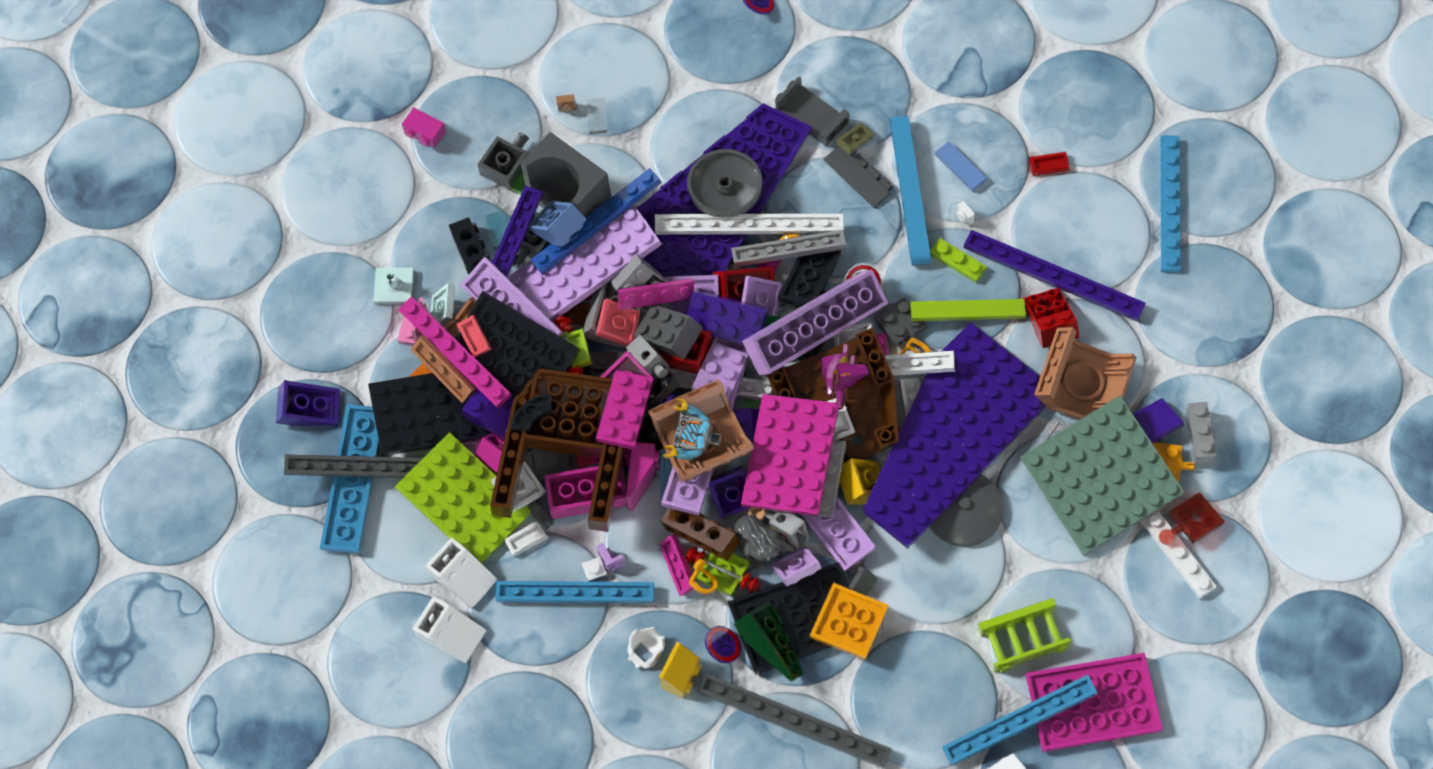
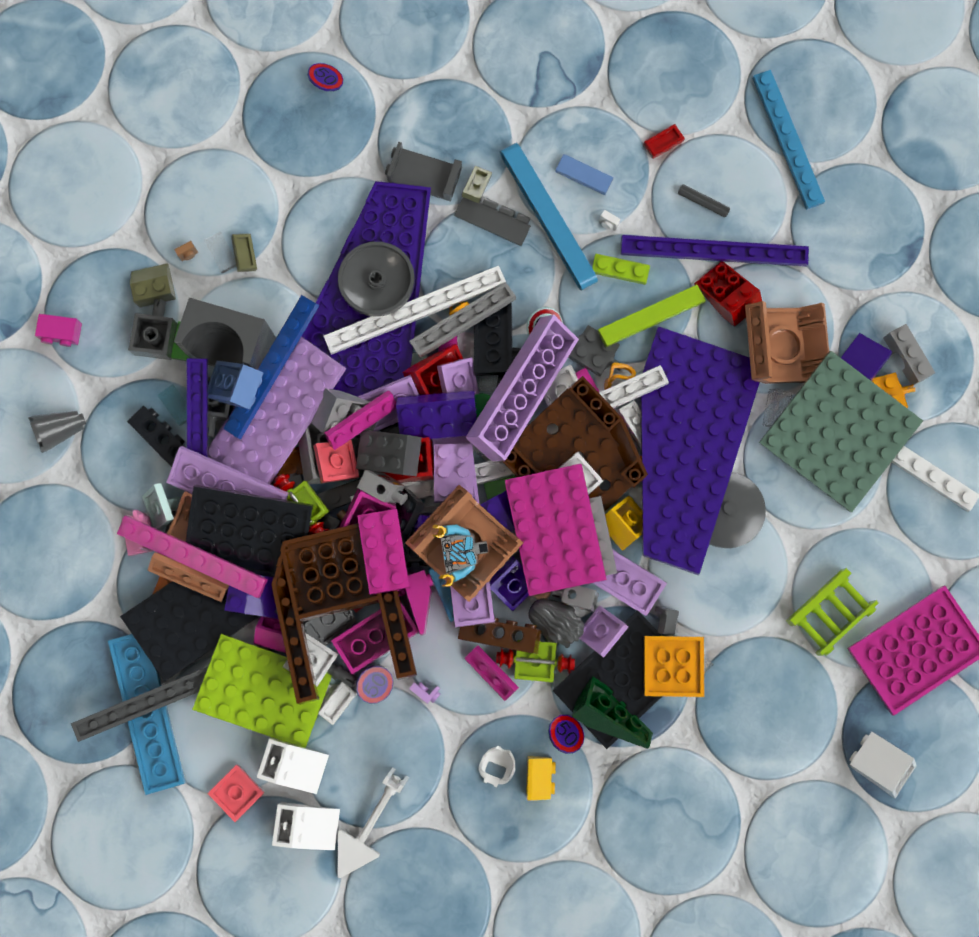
camera: 30 degrees left, 15 degrees up
(307, 404) = (69, 655): dark purple slope -> none
(383, 208) = (55, 428): none -> dark grey cone
(393, 286) = (100, 500): light aqua tile -> none
(400, 578) = (236, 792): none -> coral plate
(474, 336) = (204, 533): coral tile -> none
(482, 672) = (353, 851): none -> white piece
(522, 119) = (152, 284): none -> olive slope
(531, 411) = (294, 590): black tile -> none
(566, 533) = (374, 684): none -> piece
(574, 592) = (406, 738): dark azure plate -> none
(594, 569) = (414, 707): white plate -> none
(617, 123) = (244, 252): none -> olive tile
(699, 566) = (519, 690): light orange piece -> none
(794, 720) = (661, 779): dark grey plate -> none
(842, 374) = (573, 433): magenta piece -> none
(1019, 720) = (864, 697): dark azure plate -> none
(1064, 228) = (704, 200): none -> dark grey axle
(1192, 529) = (925, 441): clear red plate -> none

